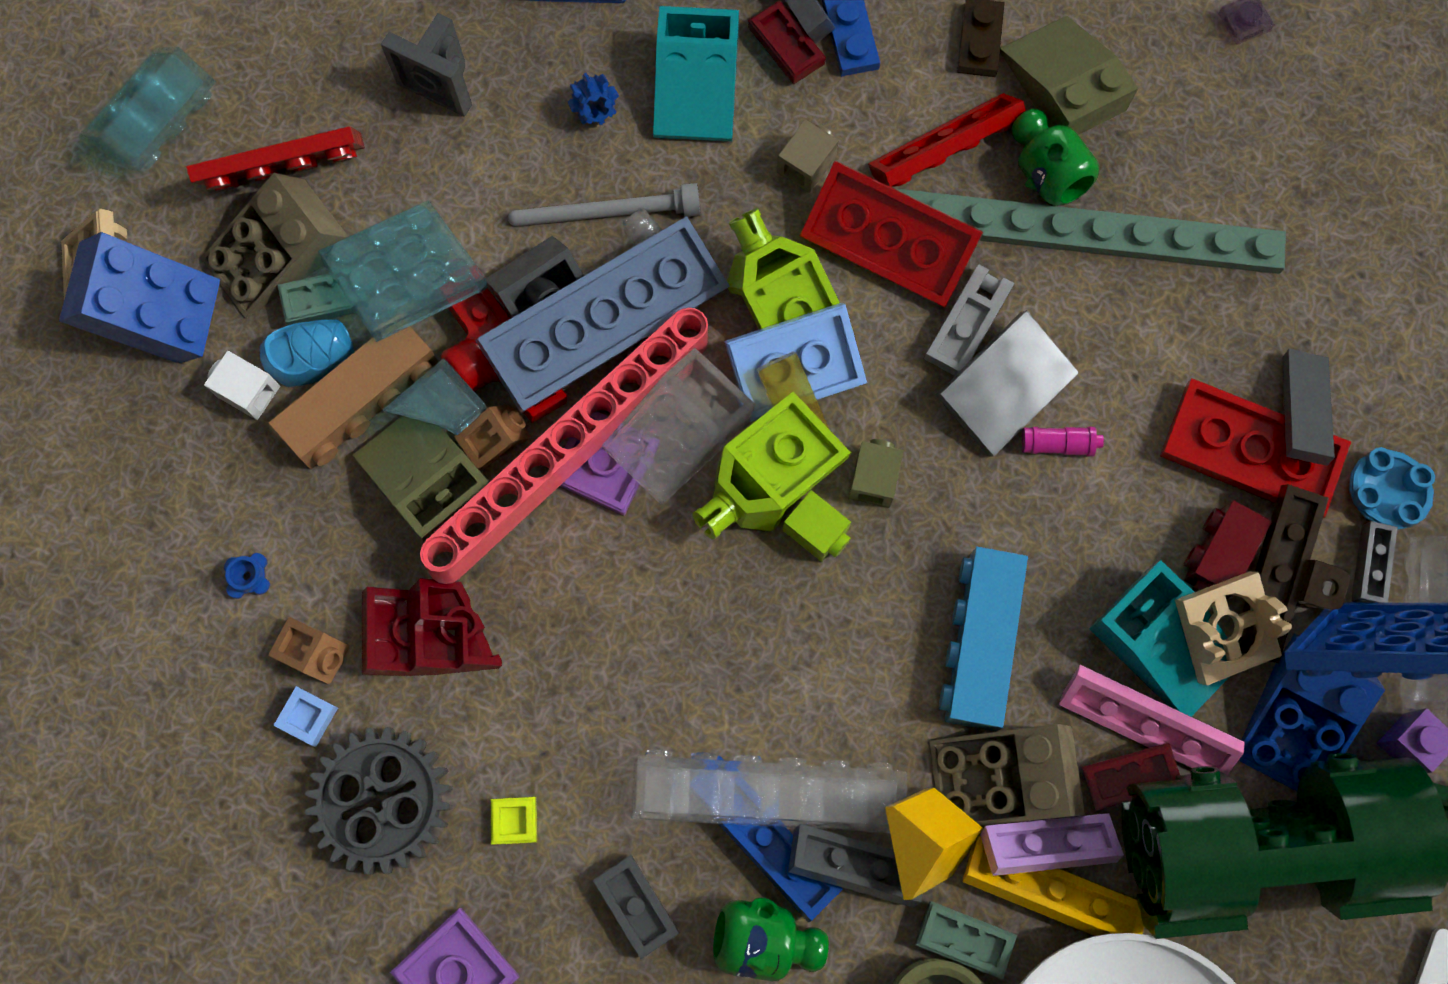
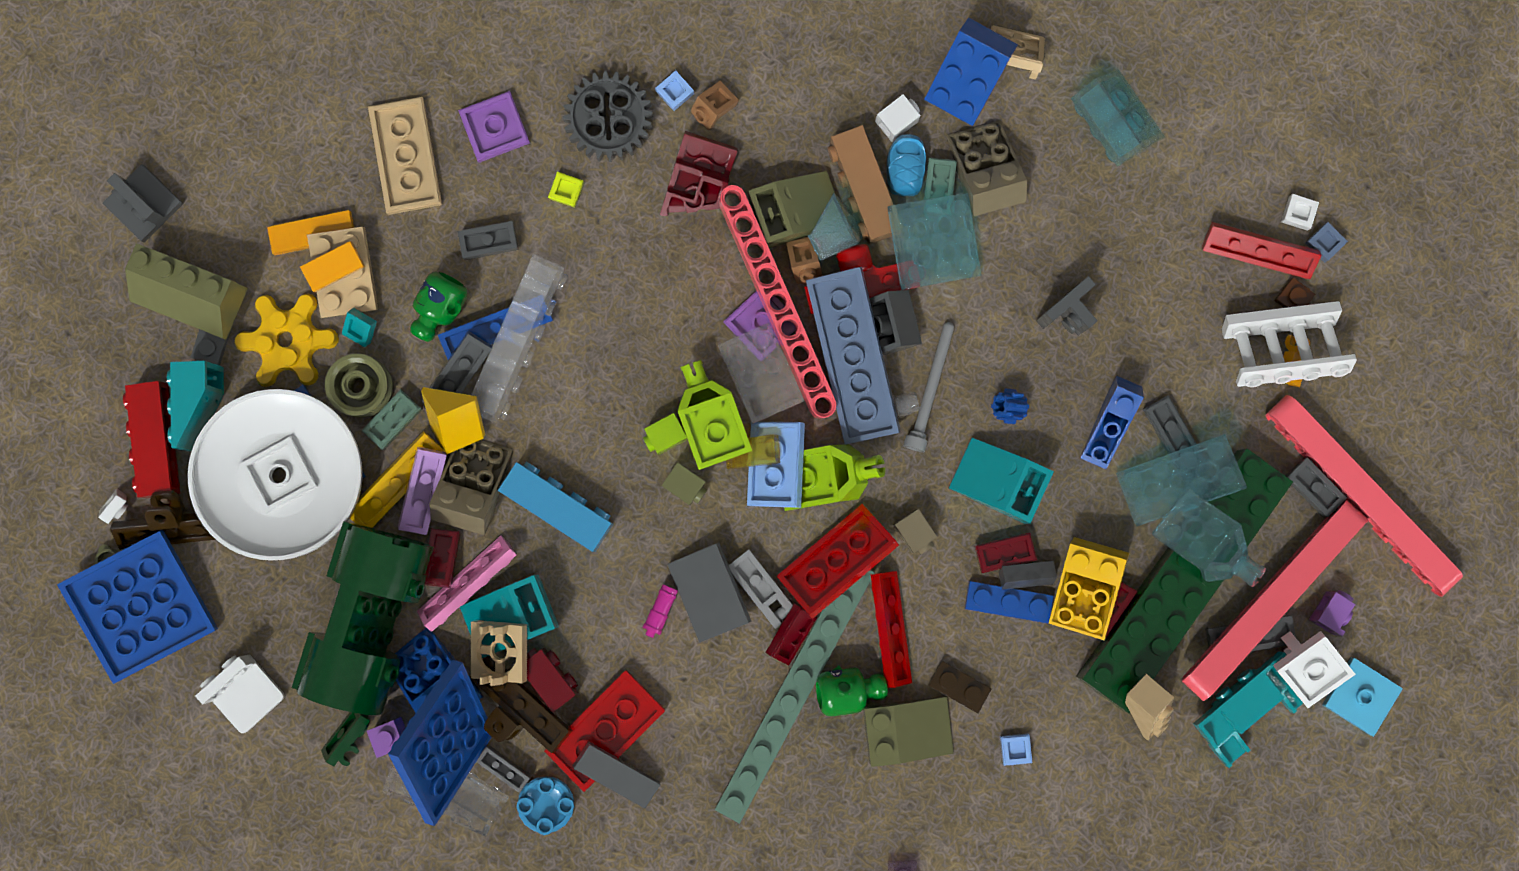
camera: 110 degrees right, 10 degrees up
(237, 567) = (775, 76): blue plate -> none
(263, 162) = (1041, 196): red plate -> none
(1014, 259) = (791, 635): none -> dark red plate

